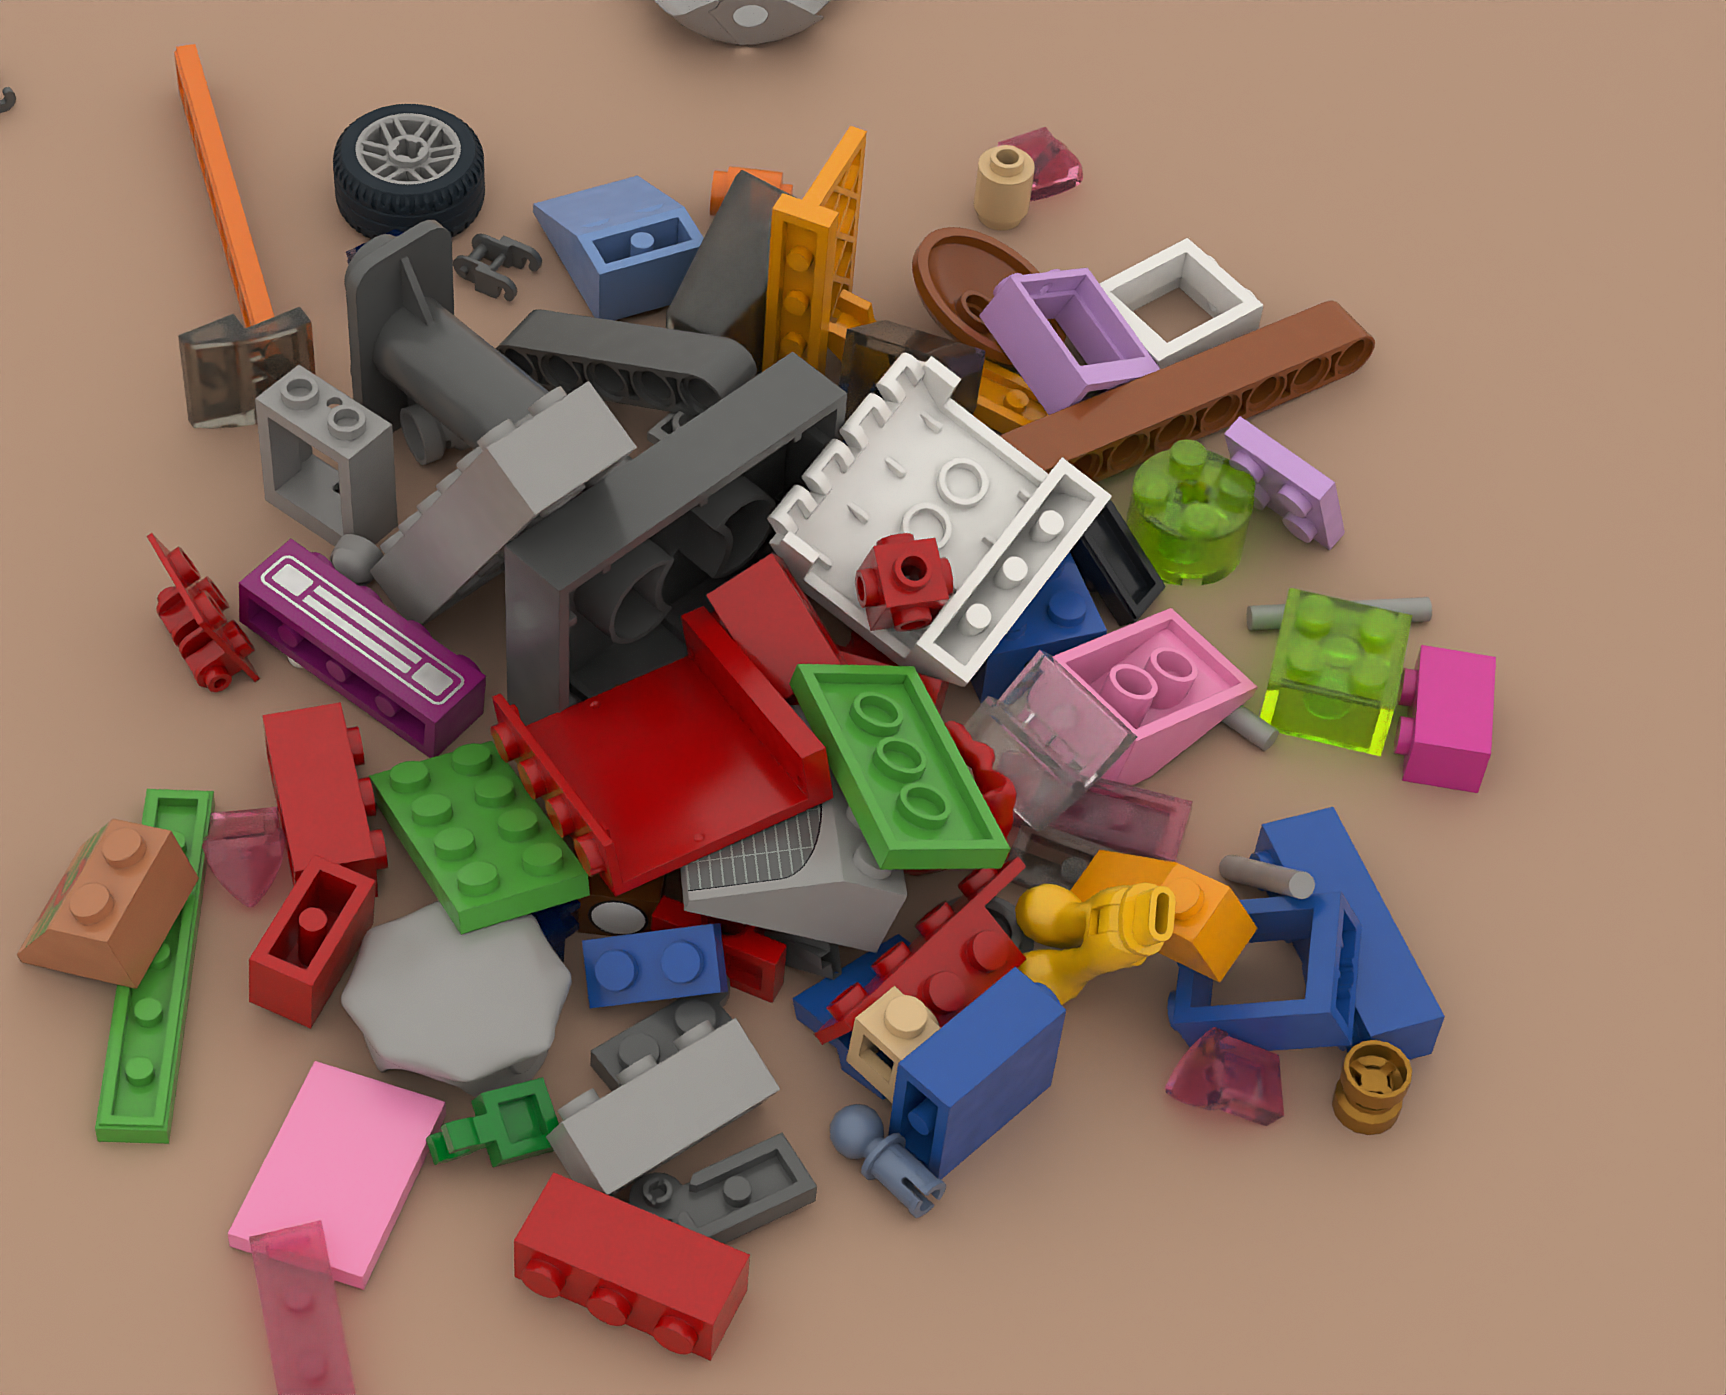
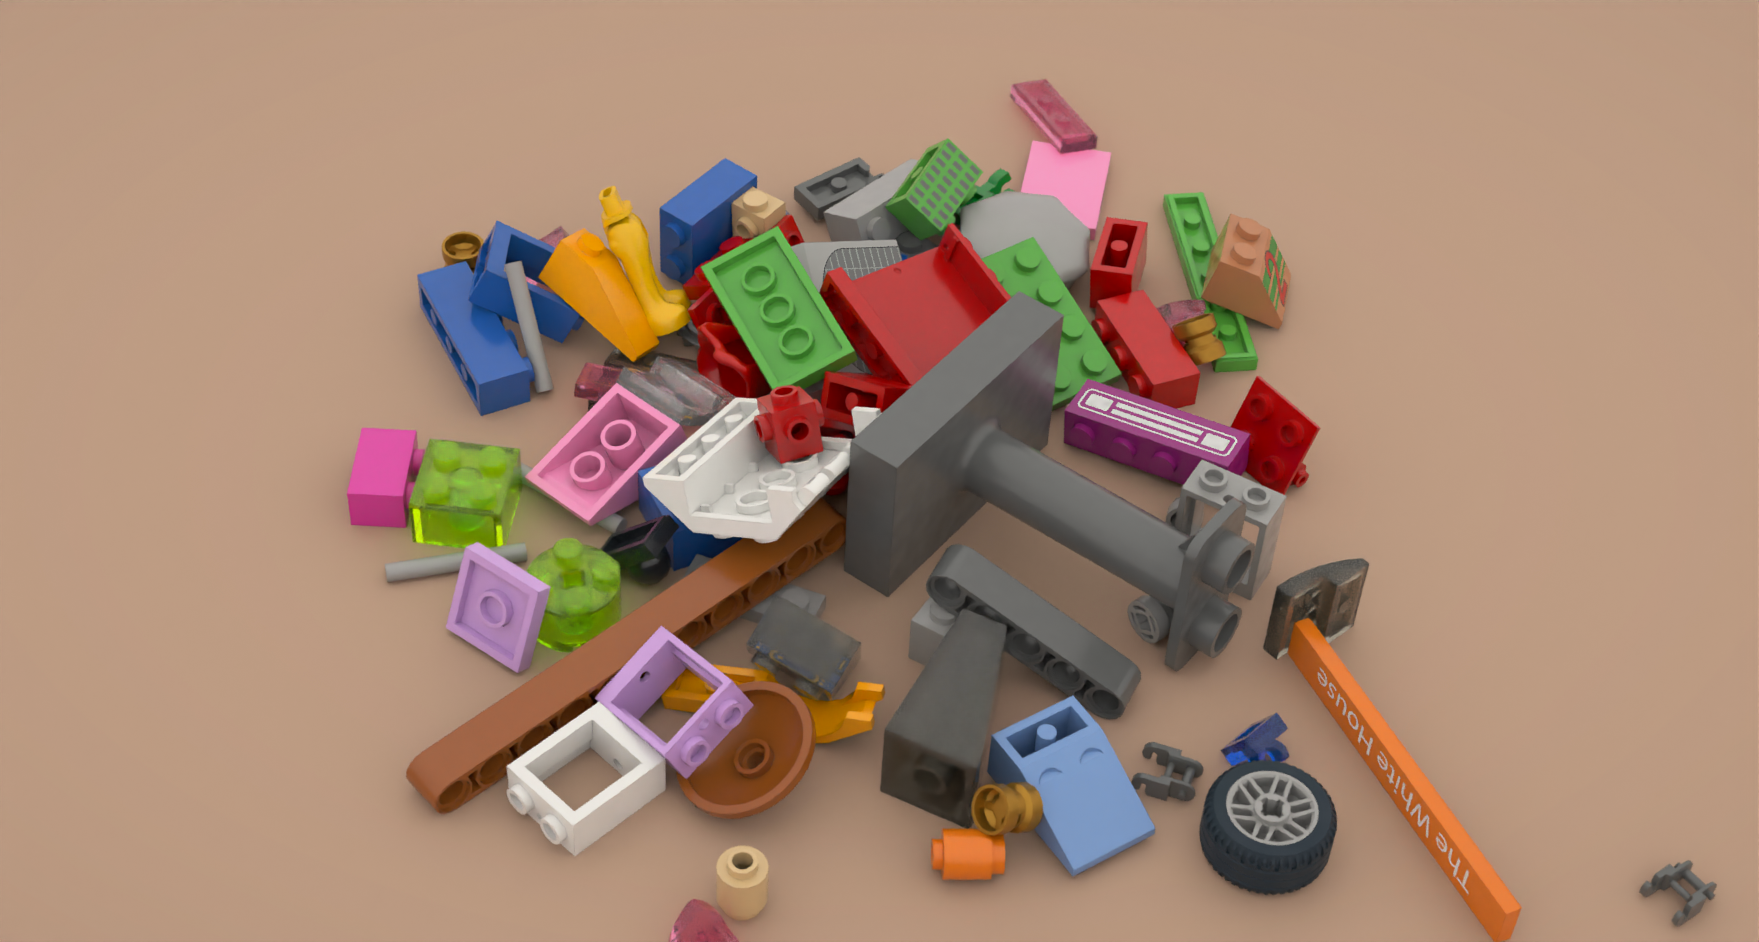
camera: 175 degrees right, 5 degrees down
(247, 787) = (1198, 338): none -> pearl gold wheel
(497, 495) = (1078, 381): light grey brick -> none
(594, 1046) = (935, 190): none -> bright green brick
(630, 1267) = (878, 141): red brick -> none
(691, 186) = (1007, 808): none -> pearl gold wheel
(813, 257) = (900, 659): light orange fence -> none

